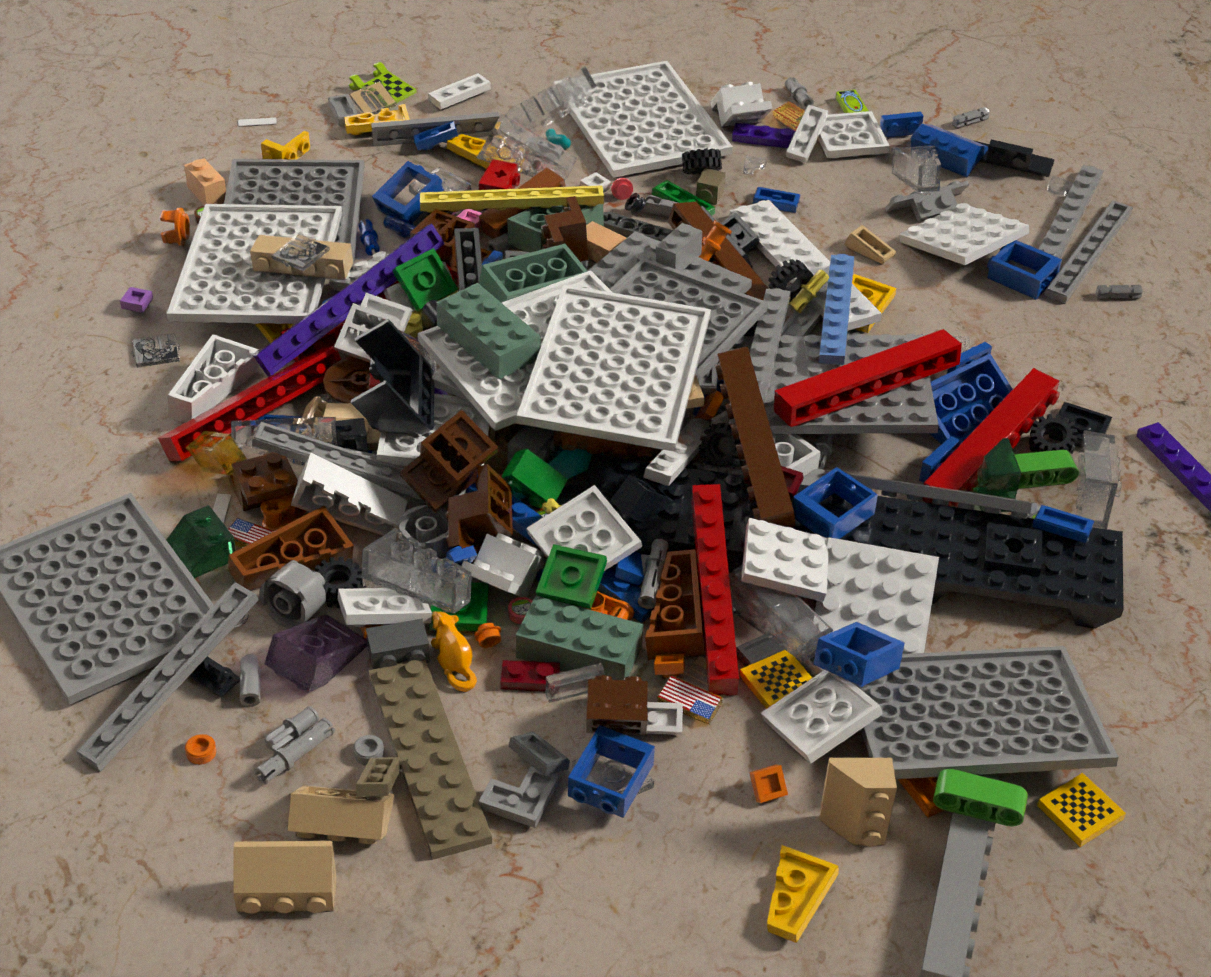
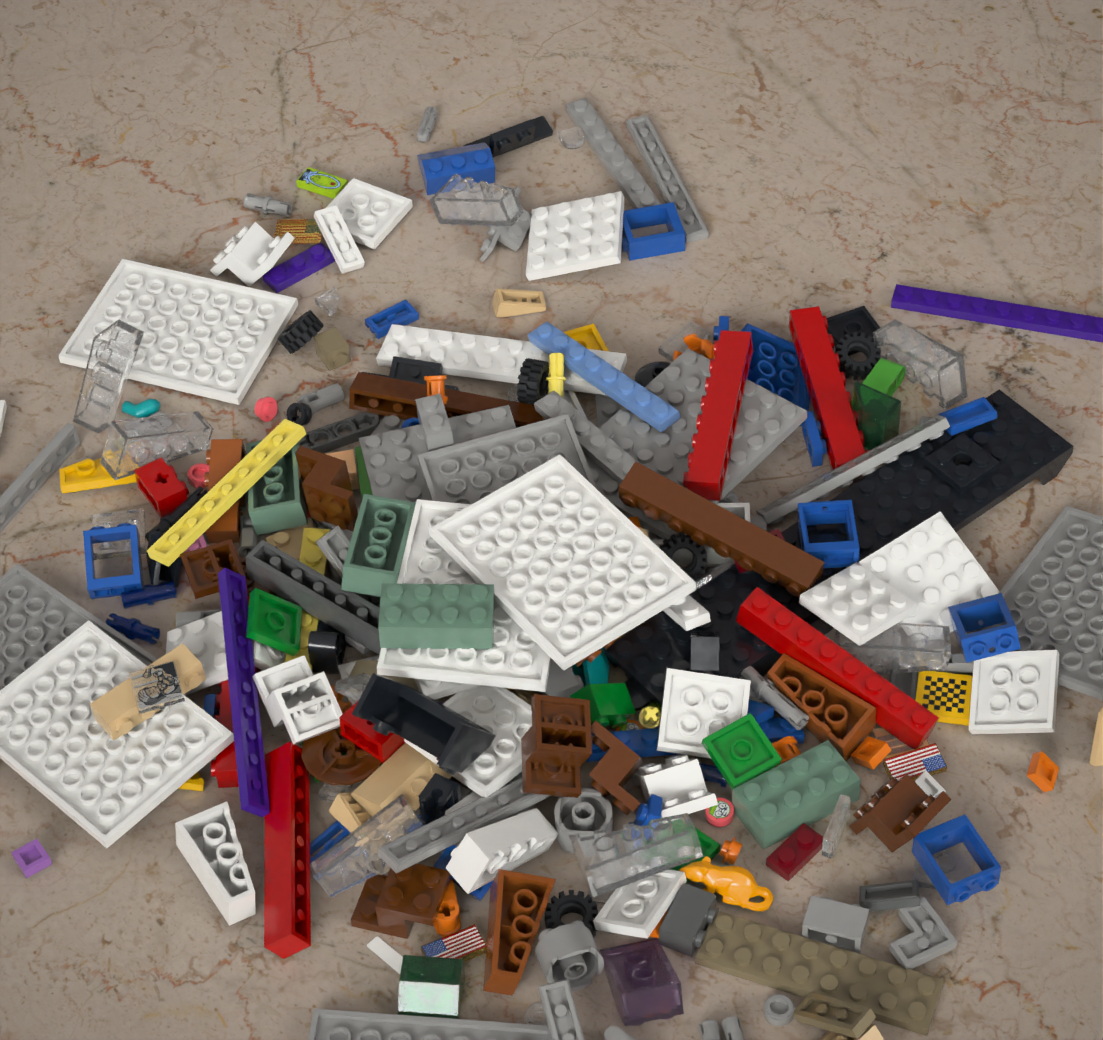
camera: 45 degrees left, 5 degrees up
(155, 350) = (116, 884): piece -> none
(216, 452) = (336, 912): clear yellow brick -> none
(428, 139) = (41, 489): blue plate -> none
(479, 735) = (836, 923): none -> light grey brick
(596, 180) = (239, 423): white plate -> none
(672, 192) = (316, 379): green tile -> none
(900, 124) = (391, 171): blue plate -> none
(1119, 291) = (732, 197): light grey axle -> none

